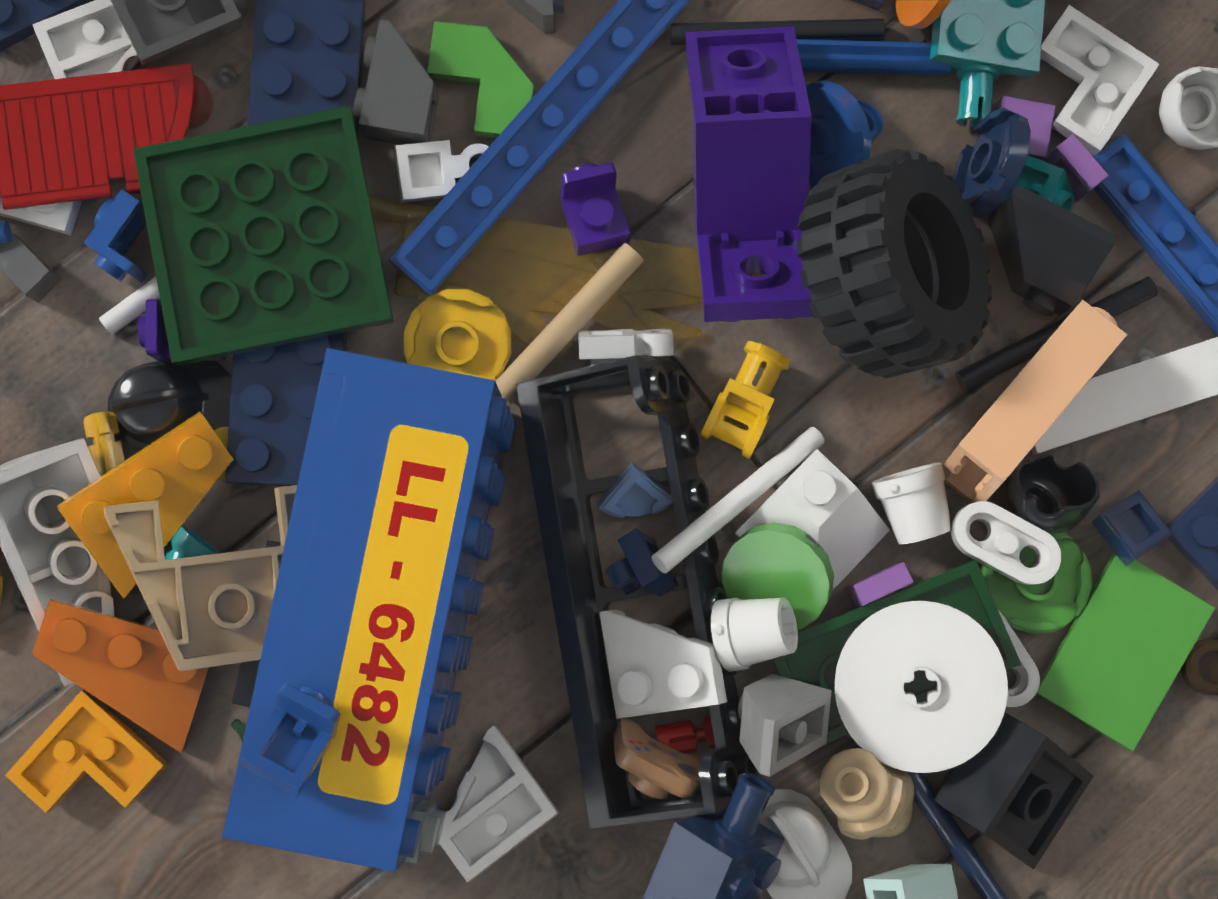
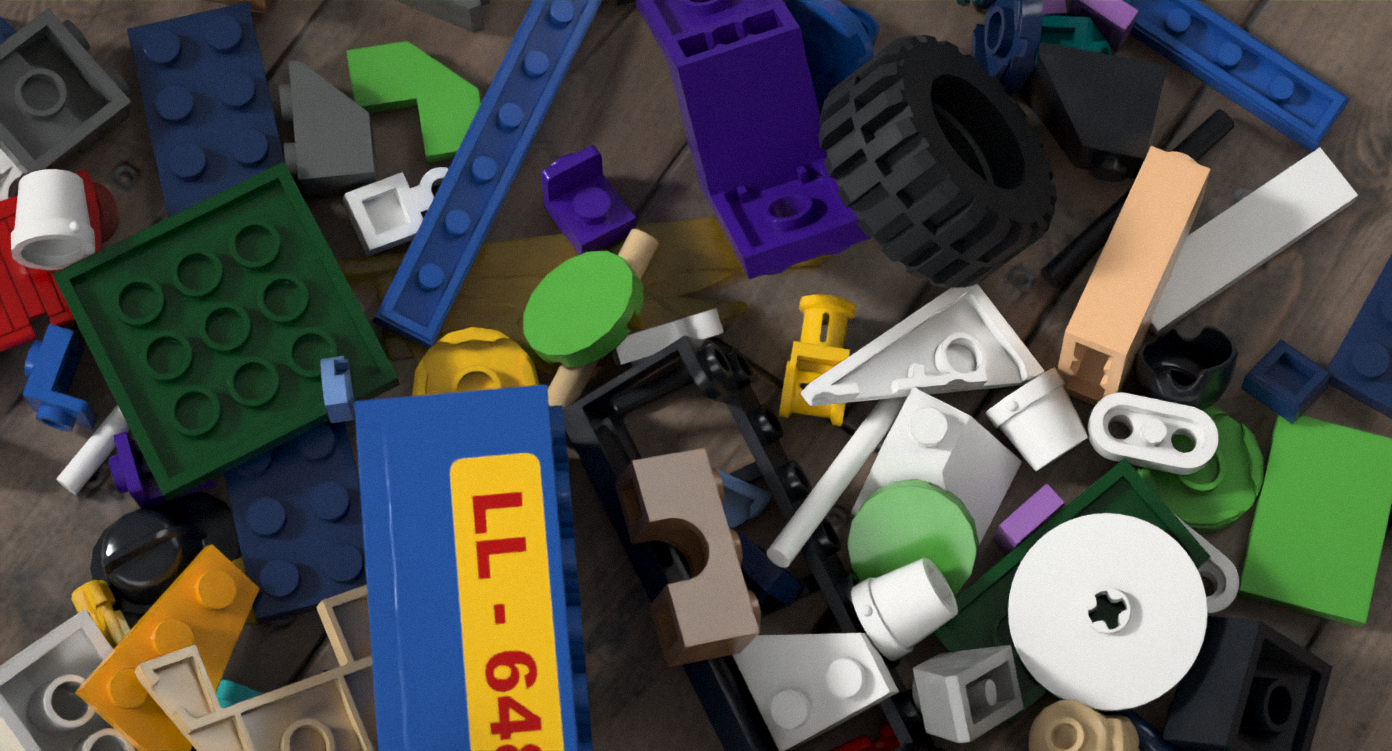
camera: 20 degrees left, 10 degrees down
(145, 102) = (51, 221): none -> white piece
(336, 314) = (337, 389): none -> medium blue tile
(562, 301) = (583, 309): none -> bright green tile
(594, 495) = (681, 503): none -> medium nougat arch
(851, 419) = (941, 348): none -> white wing

